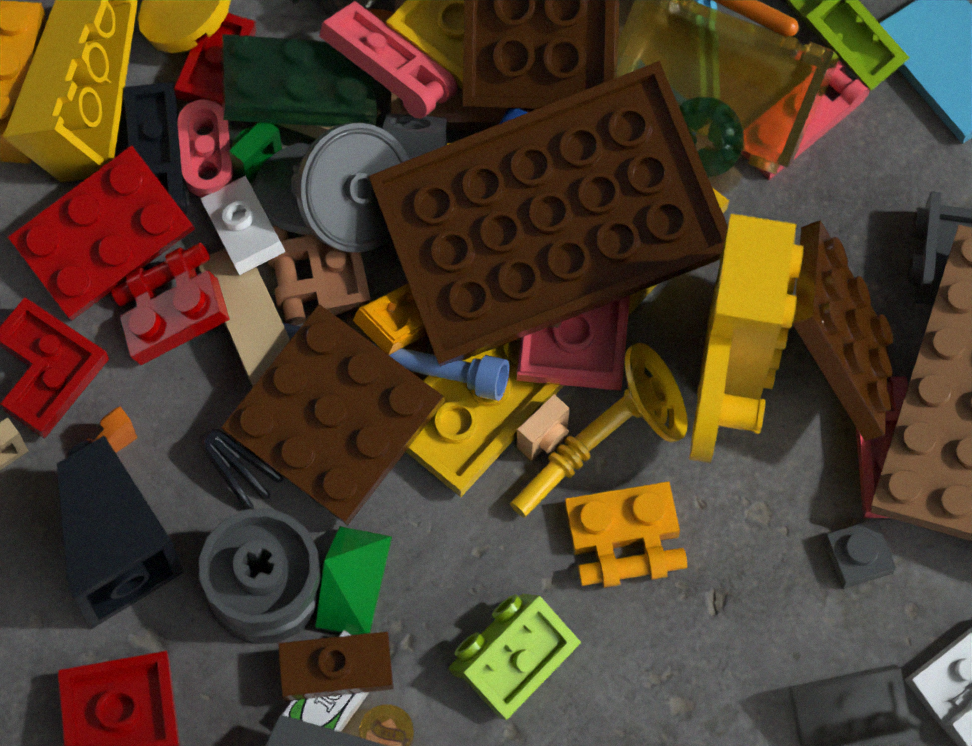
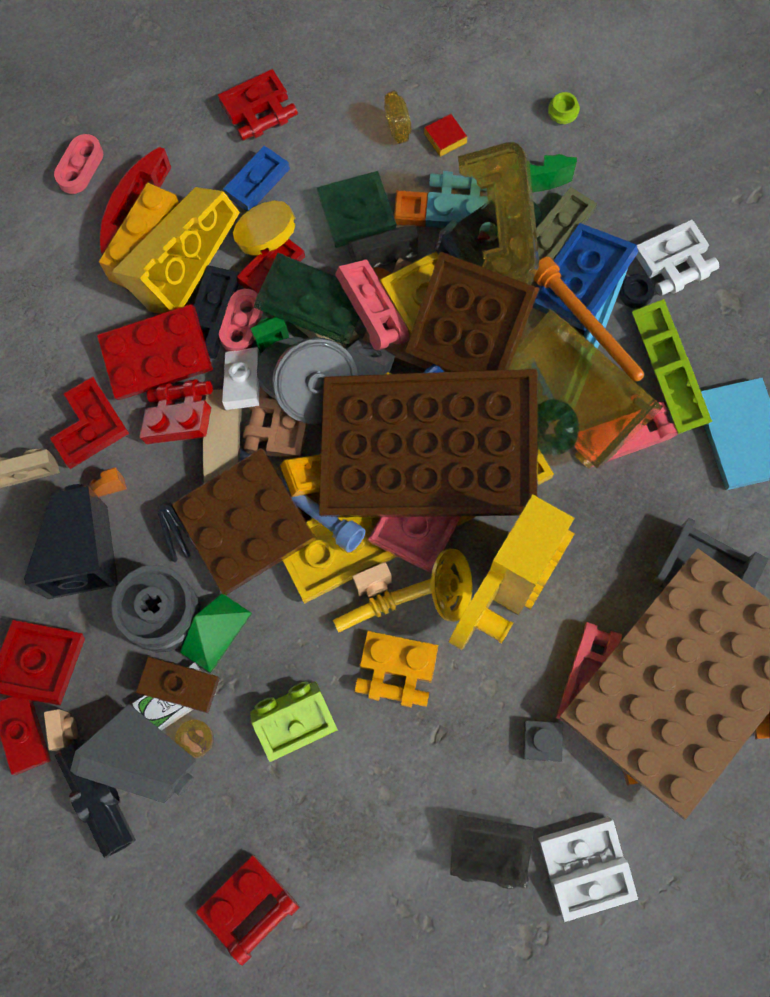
camera: 25 degrees right, 5 degrees up
(843, 330) = (585, 594): reddish brown plate -> none

